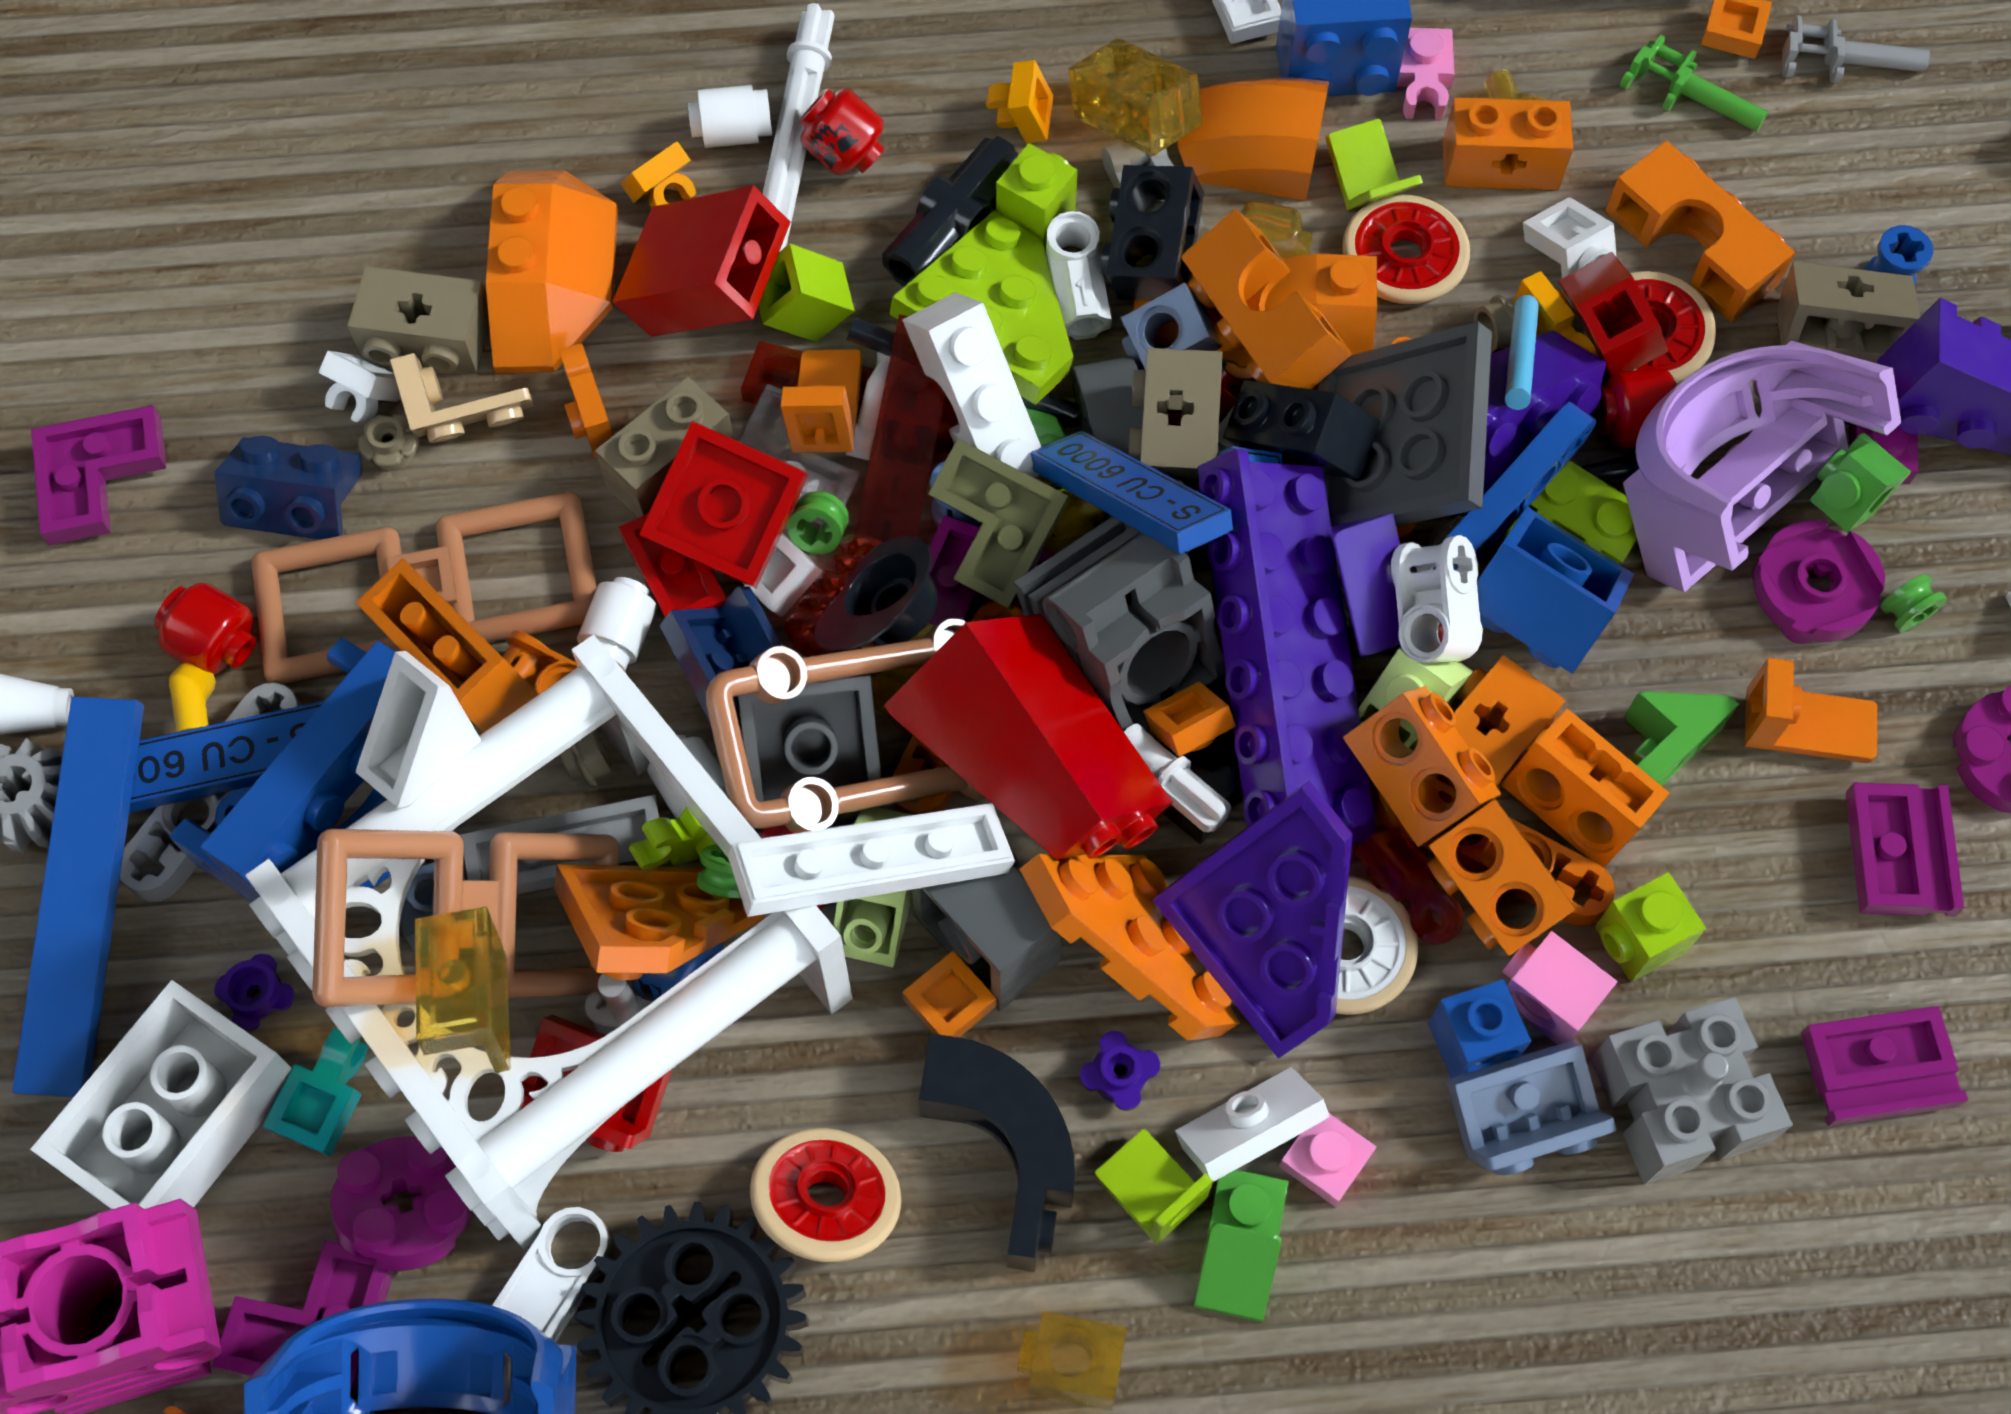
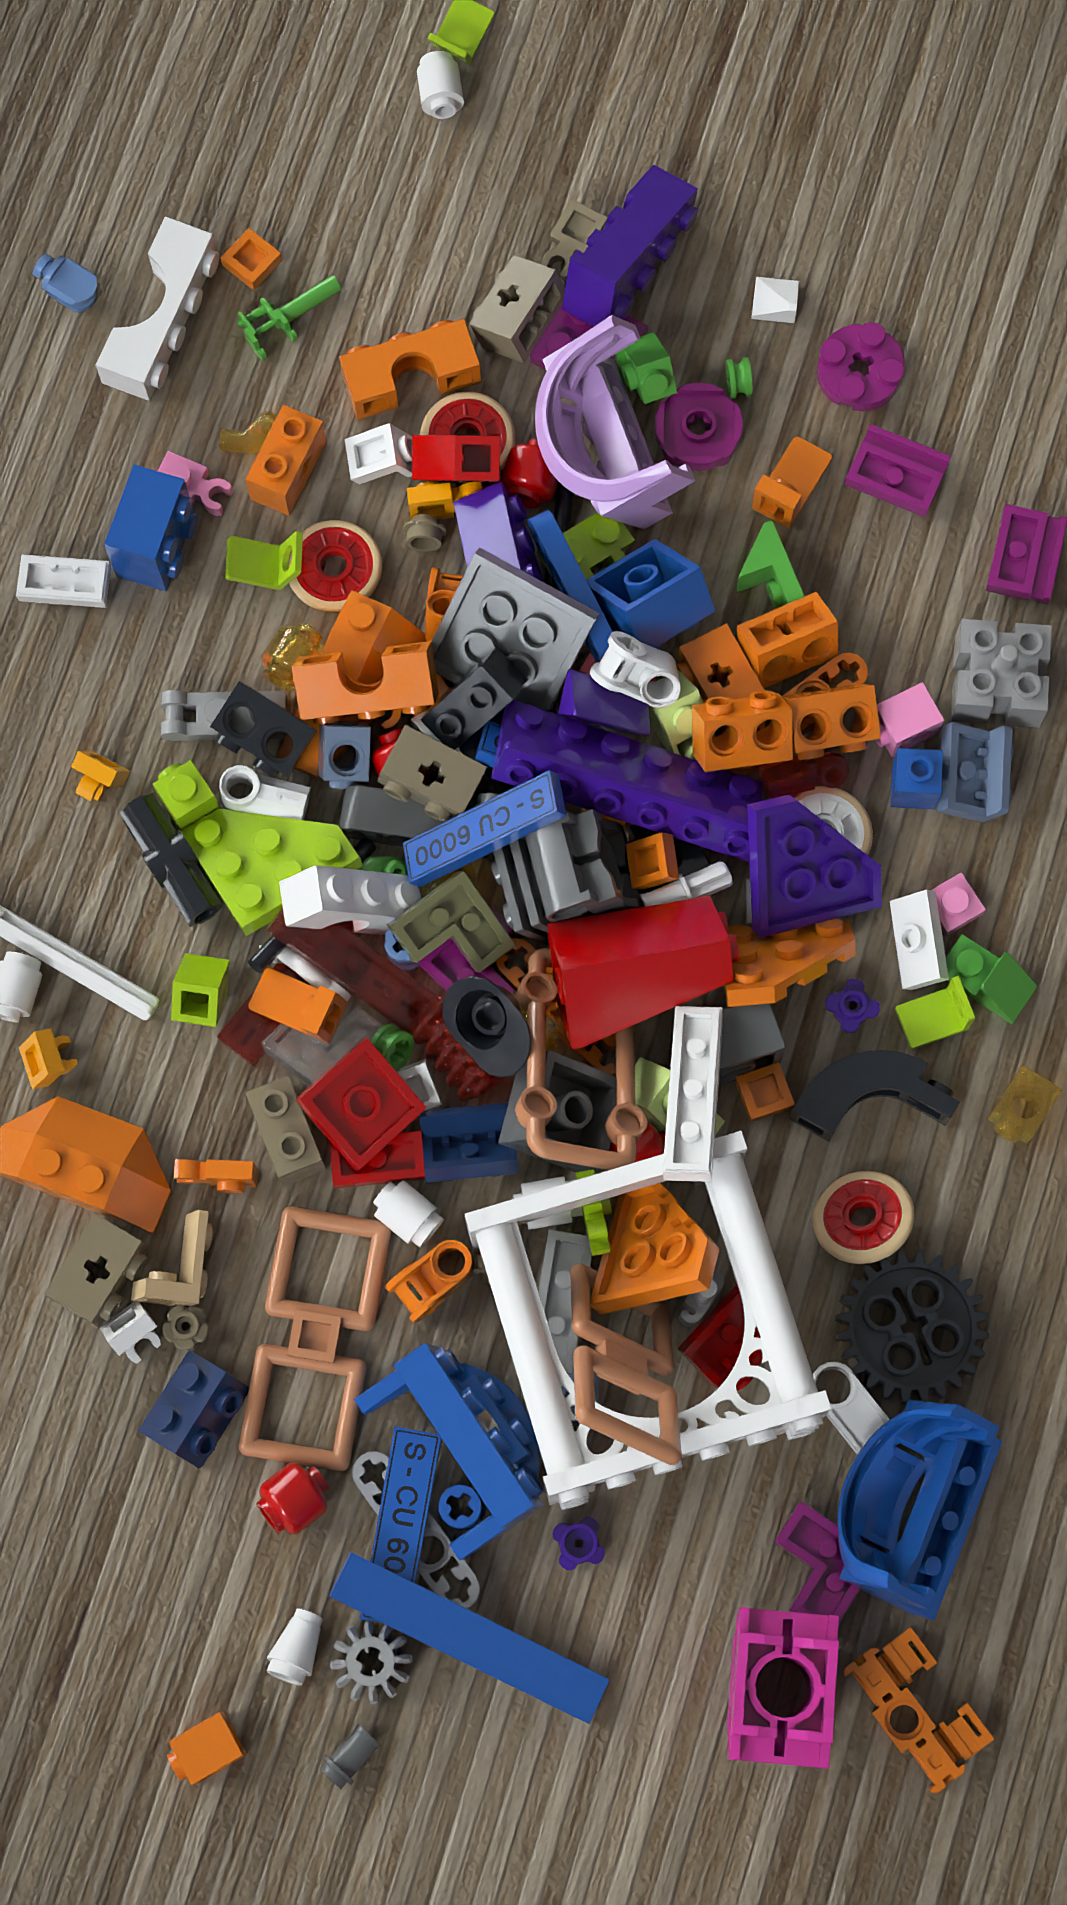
camera: 65 degrees left, 10 degrees up
(77, 461) = (106, 1556): magenta plate -> none
(165, 1106) = (651, 1617): white brick -> none
(189, 692) = (342, 1522): yellow arm -> none
(317, 1103) = (676, 1522): teal plate -> none
(383, 1233) = (785, 1503): magenta plate -> none
(414, 733) = (489, 1356): white slope -> none
(445, 644) = (401, 1326): orange brick -> none
(462, 985) = (685, 1377): clear yellow panel -> none
(702, 262) = (150, 1050): red brick -> none
(718, 875) = (635, 1203): bright green bush -> none
(842, 131) = (71, 911): red head -> none
(1135, 96) = (139, 700): clear yellow brick -> none
(1258, 135) = (195, 623): orange slope -> none
(1522, 352) = (475, 531): medium azure bar -> none
(1649, 927) = (890, 646): lime brick -> none
(1840, 52) = (303, 202): light grey piece -> none
(1909, 255) = (487, 244): blue bush -> none

